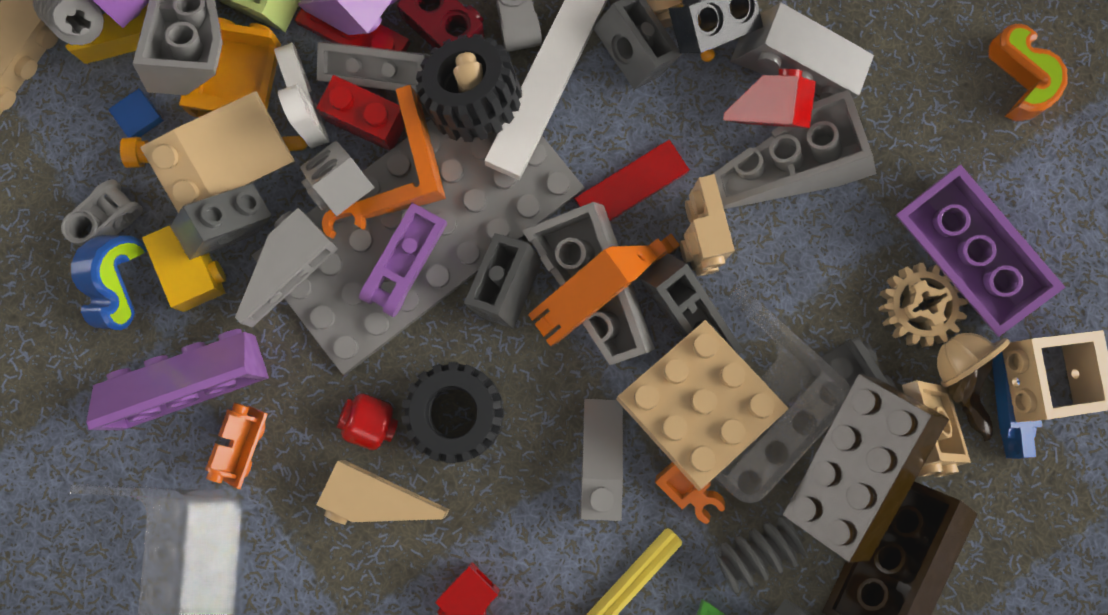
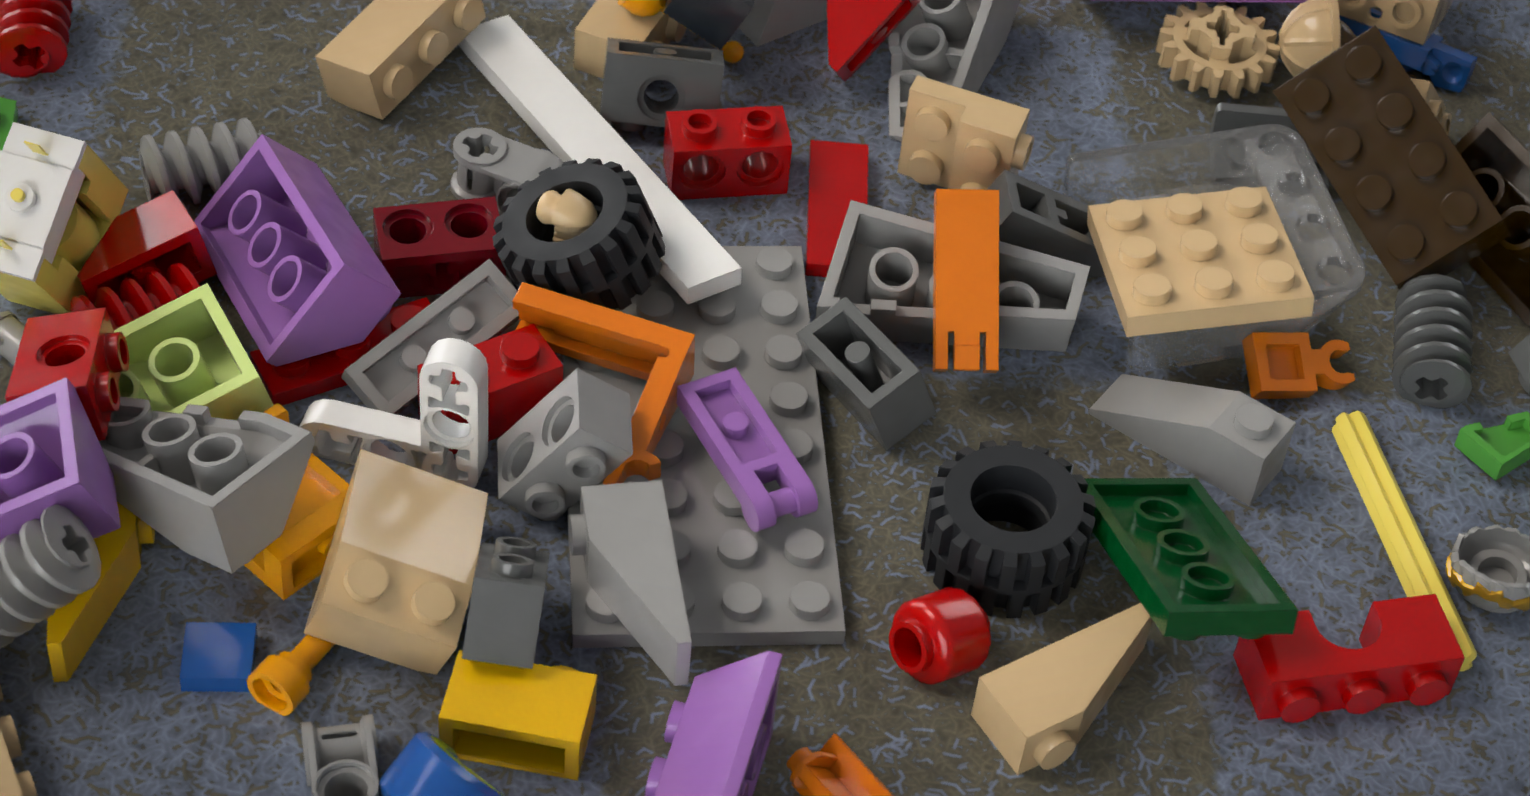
camera: 60 degrees left, 35 degrees down
(484, 514) = (1187, 560): none -> dark green plate
(616, 106) = (727, 152): none -> red brick

